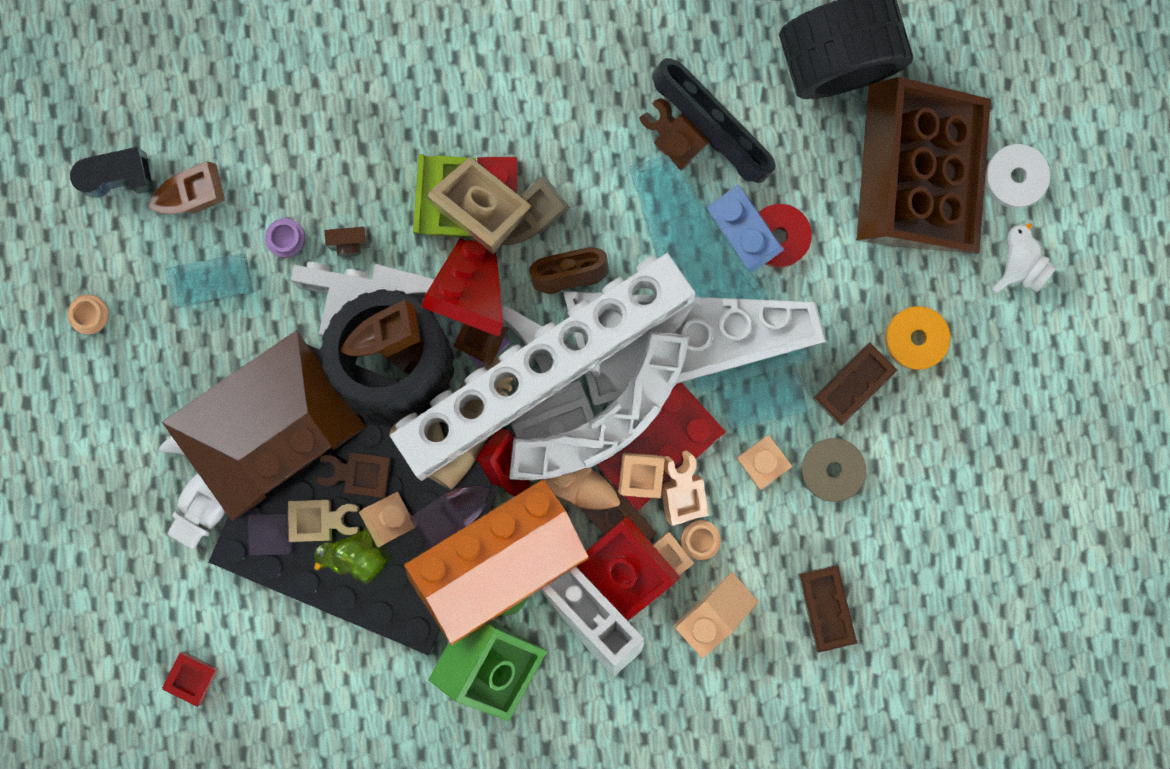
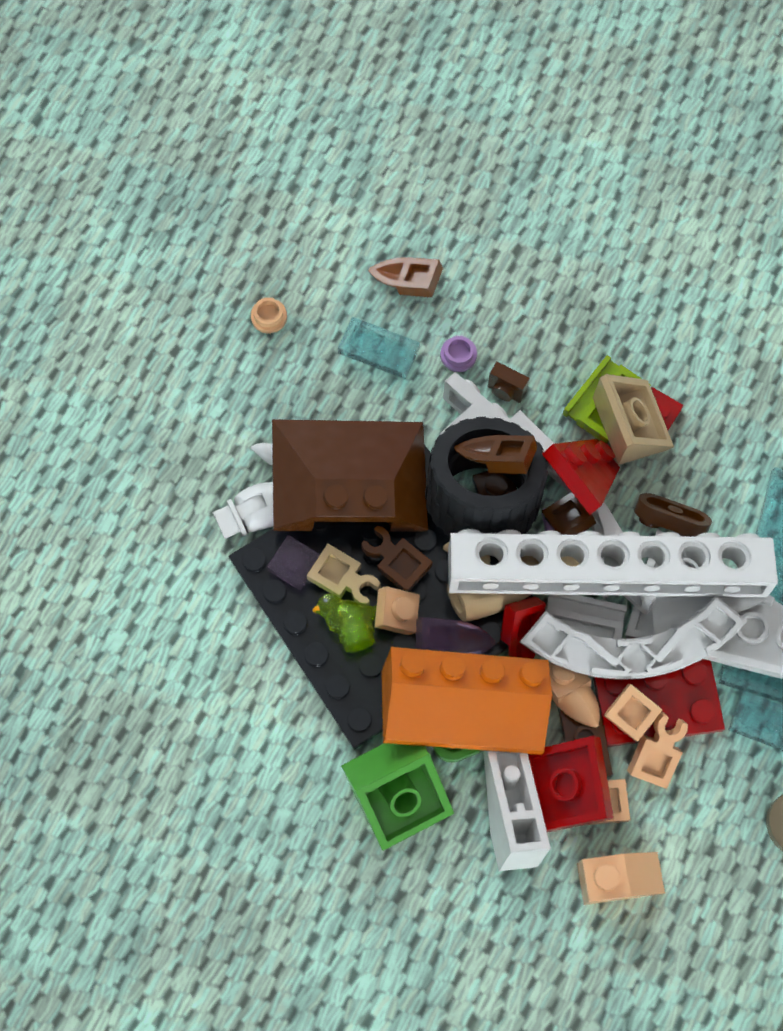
camera: 35 degrees right, 15 degrees down
(112, 170) = (360, 225): black leg -> none
(190, 679) = (148, 637): red plate -> none
(545, 209) = (680, 459): dark tan plate -> none
(700, 540) = (647, 806): light nougat plate -> none
(764, 462) = (742, 777): light nougat plate -> none
(827, 608) = (724, 939): reddish brown plate -> none

